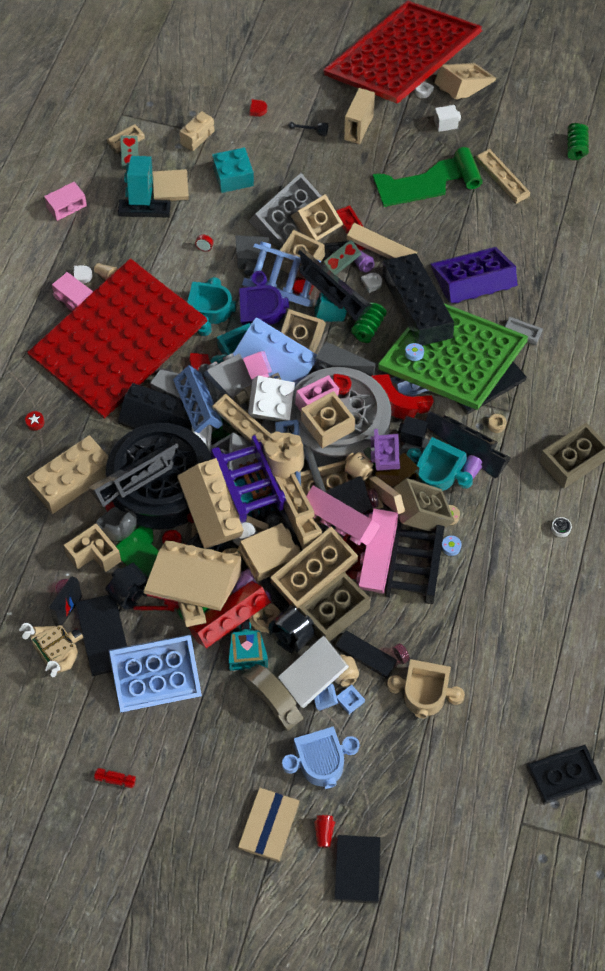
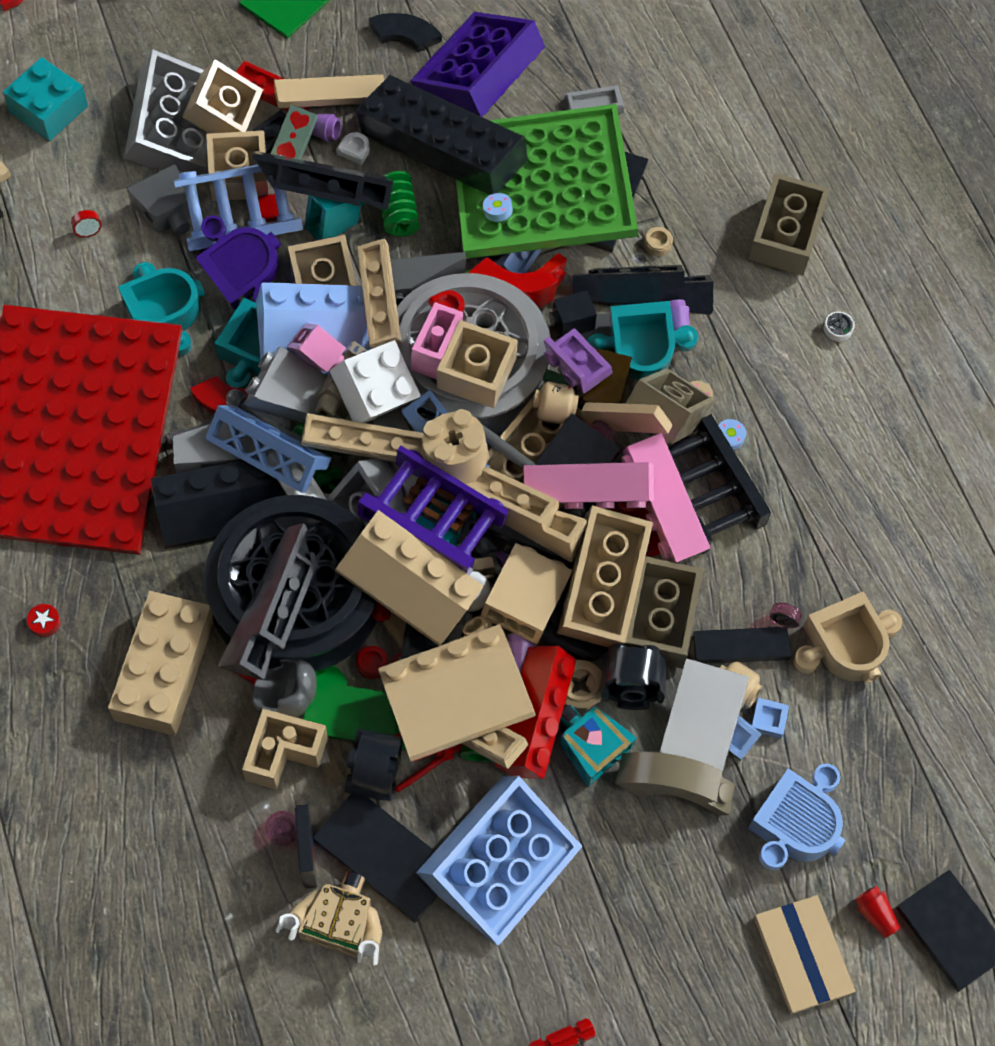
camera: 40 degrees left, 5 degrees up
(312, 357) = (378, 293): none -> tan tile
(450, 235) = (406, 29): none -> black tile

